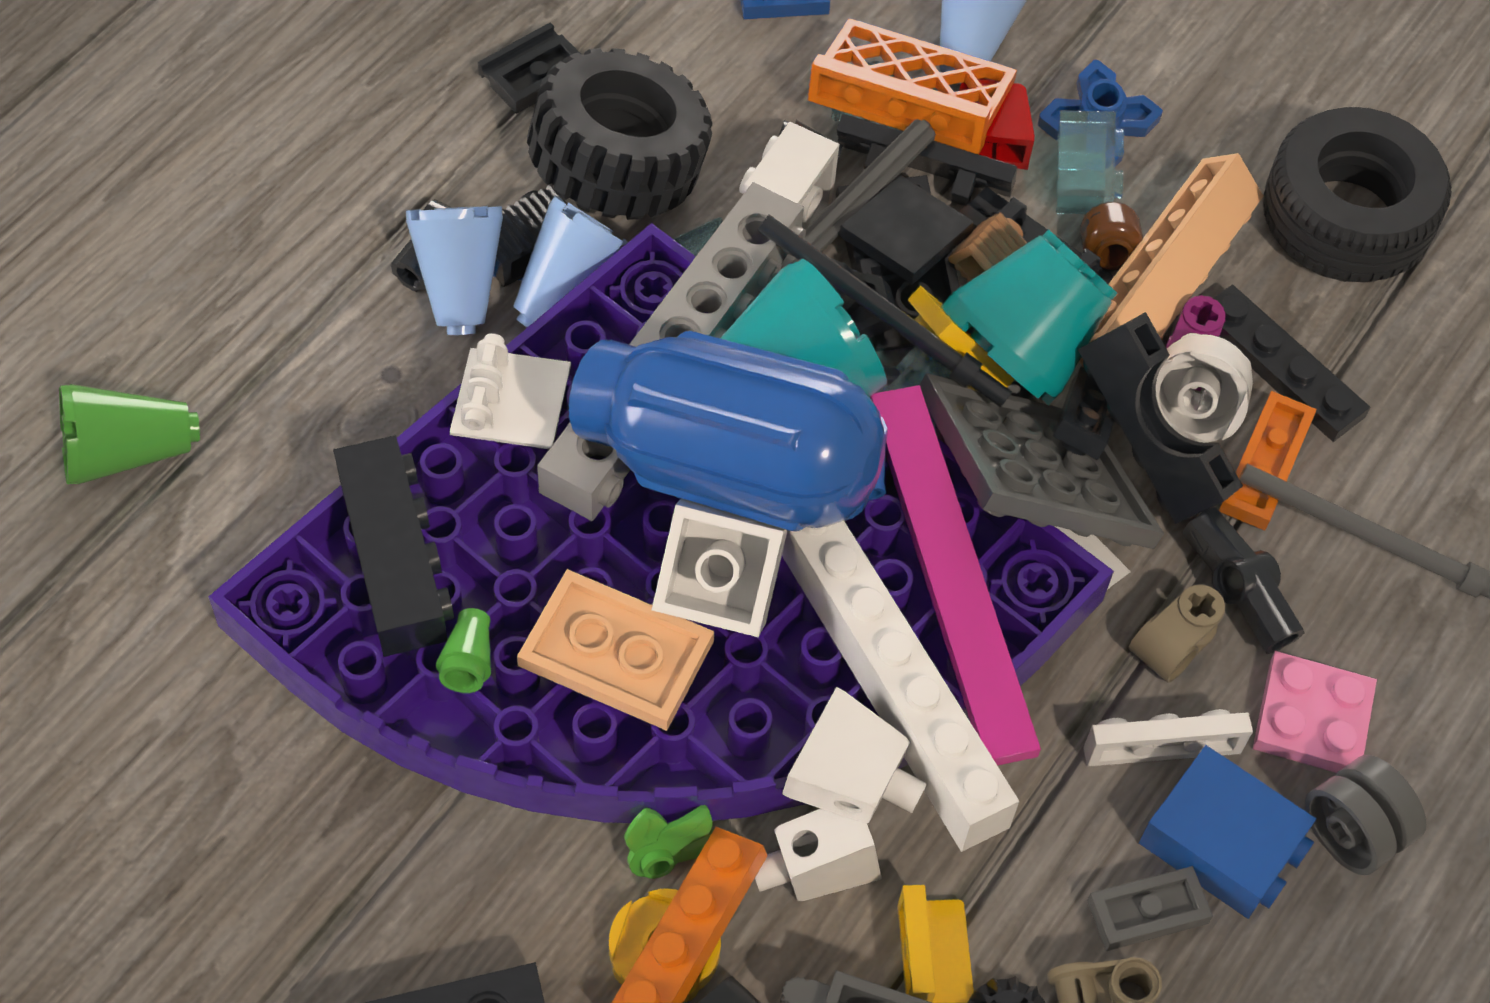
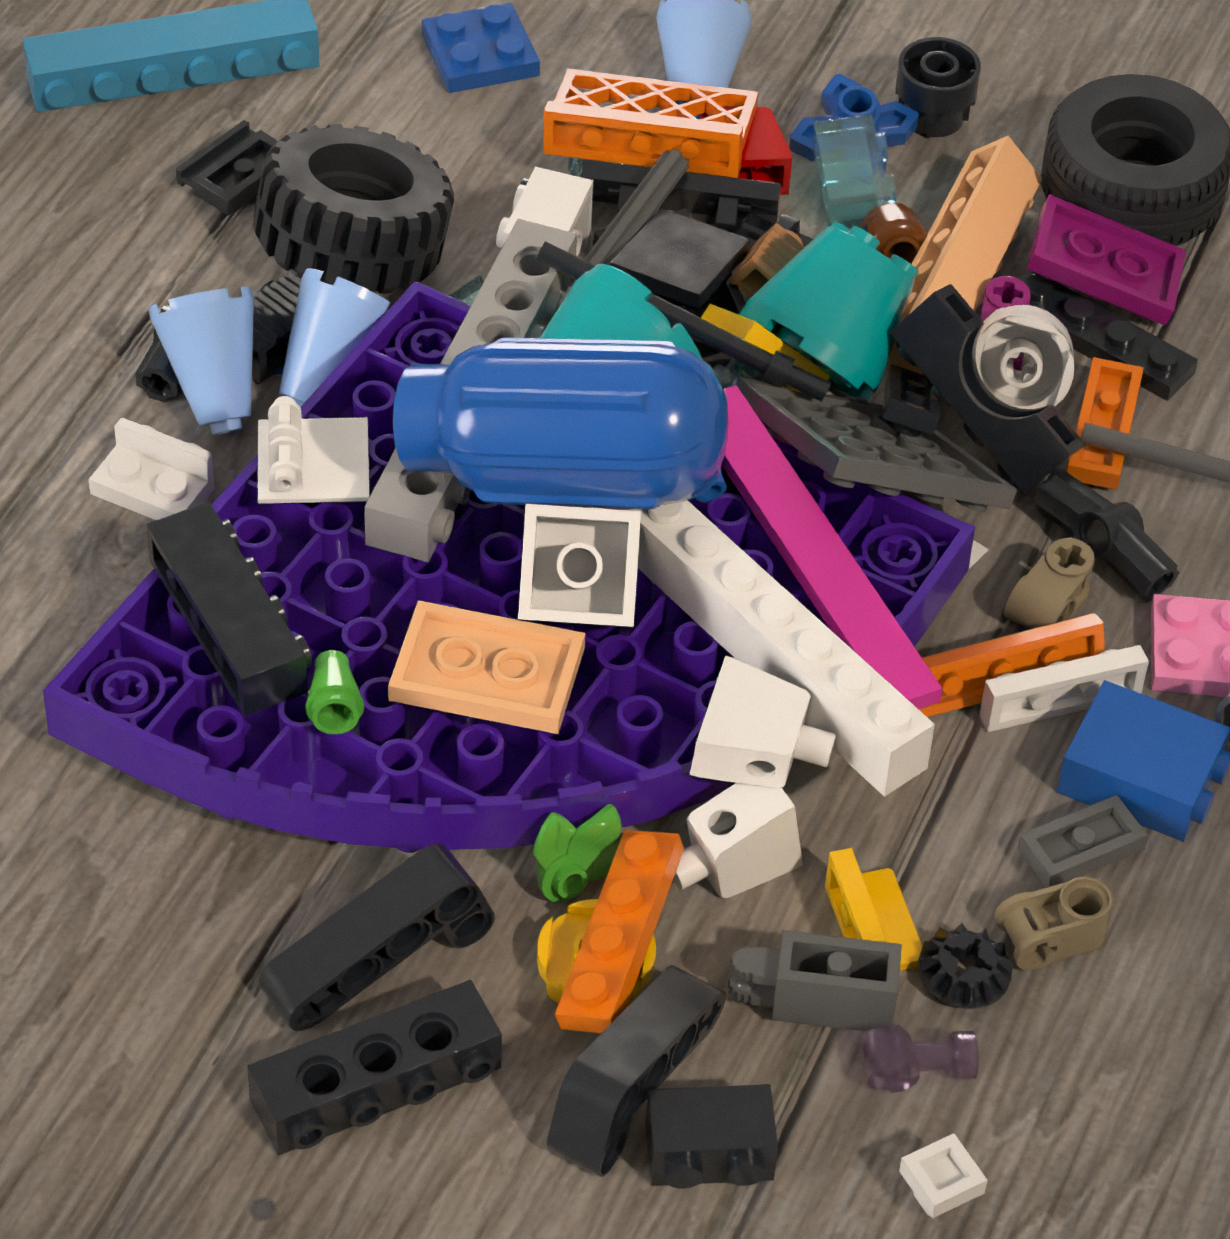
camera: 10 degrees left, 10 degrees down
(384, 369) = (153, 472): none -> white bracket
(461, 893) = (376, 934): none -> black beam
(1073, 709) = (966, 669): none -> orange plate
(1187, 83) = (938, 82): none -> black piece
(1306, 291) = (1107, 260): none -> magenta plate

